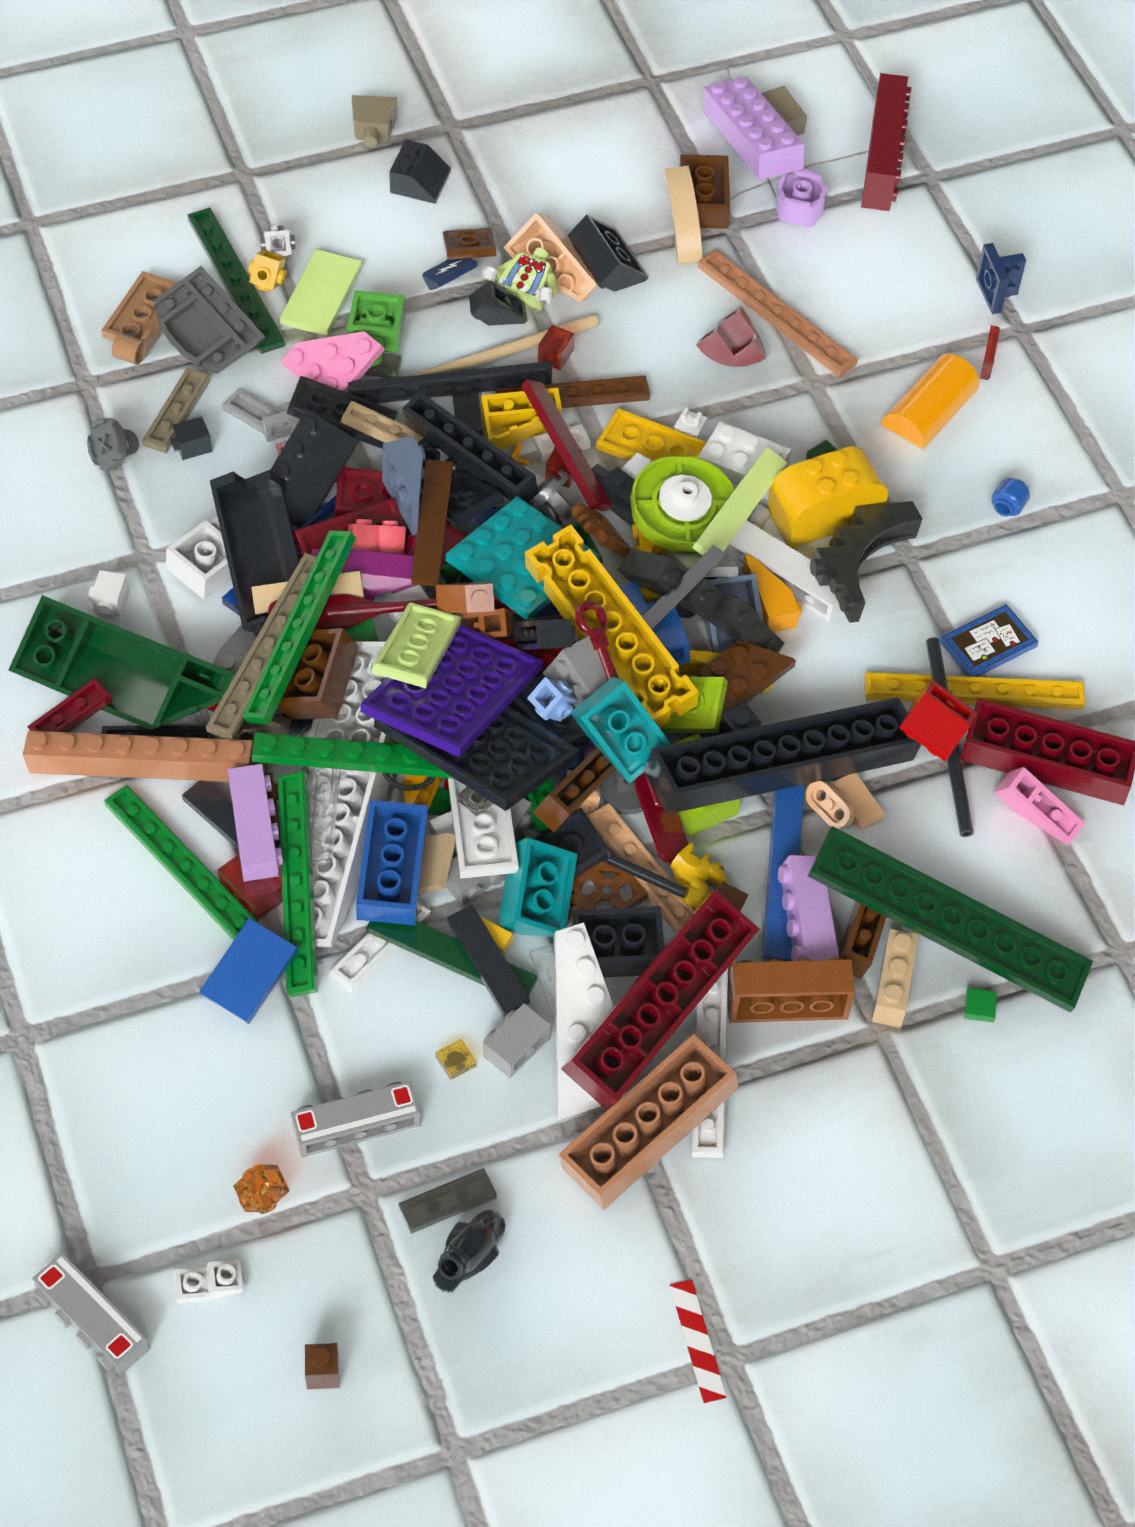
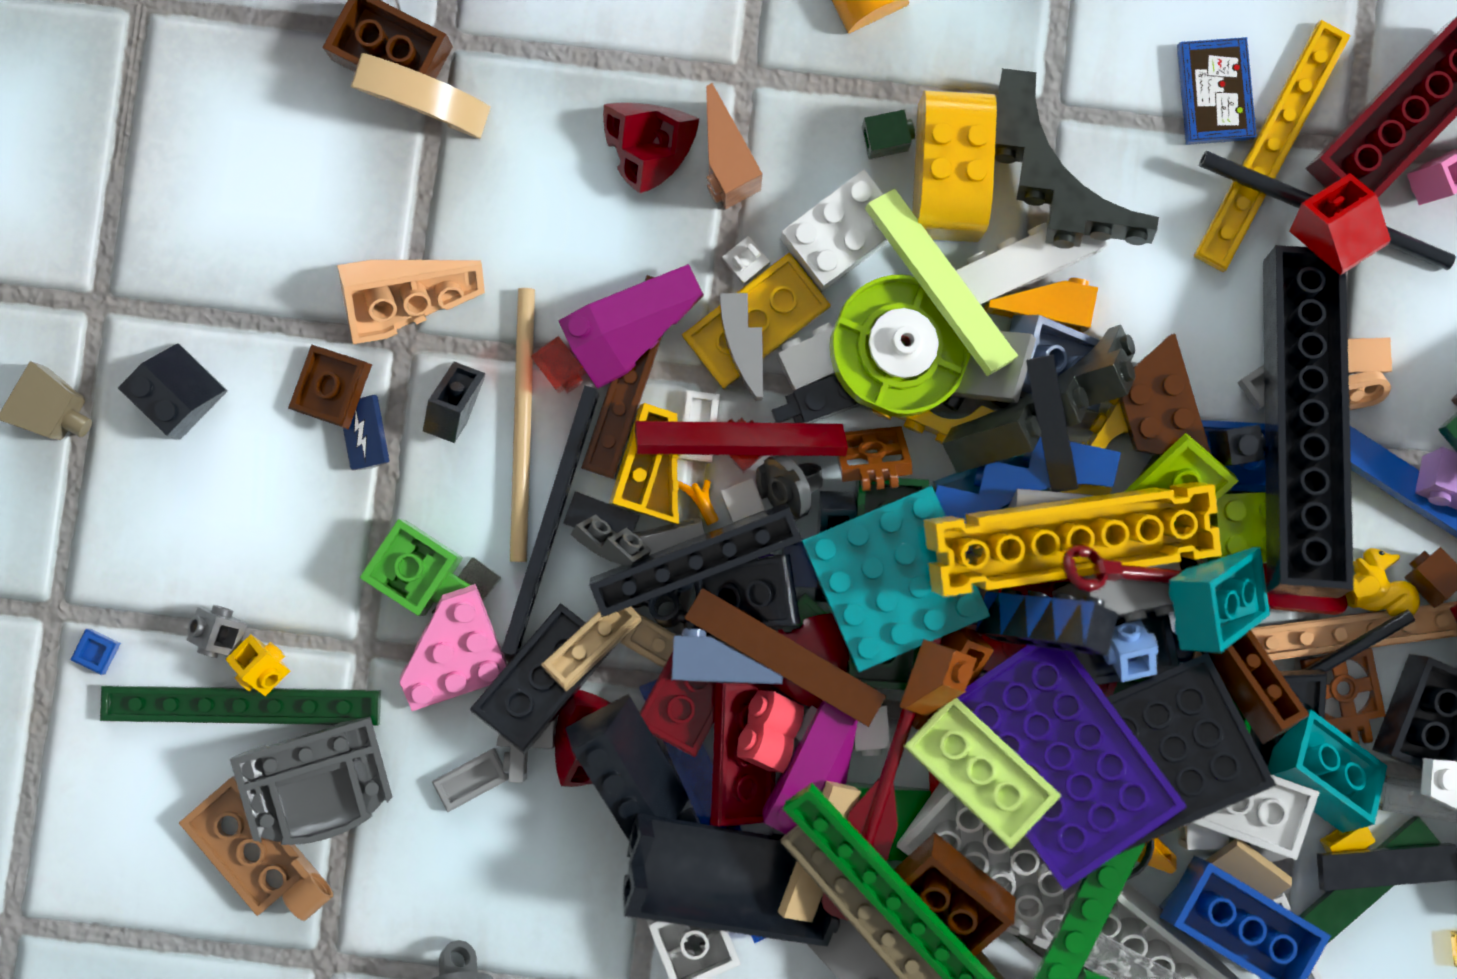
camera: 65 degrees left, 30 degrees up
(176, 409) = (426, 870): dark tan tile -> none
(191, 438) = (488, 876): black brick -> none
(230, 198) = (95, 651): none -> blue tile
(321, 292) = (316, 607): yellowish green tile -> none
(455, 403) = (620, 547): none -> dark grey slope
(526, 278) = (430, 346): torso -> none
(599, 364) = (623, 326): none -> magenta wedge
(606, 255) = (431, 222): black slope -> none
(632, 433) = (743, 341): none -> light grey slope
(751, 376) = (731, 165): none -> nougat slope
(777, 313) = (618, 61): nougat tile -> none

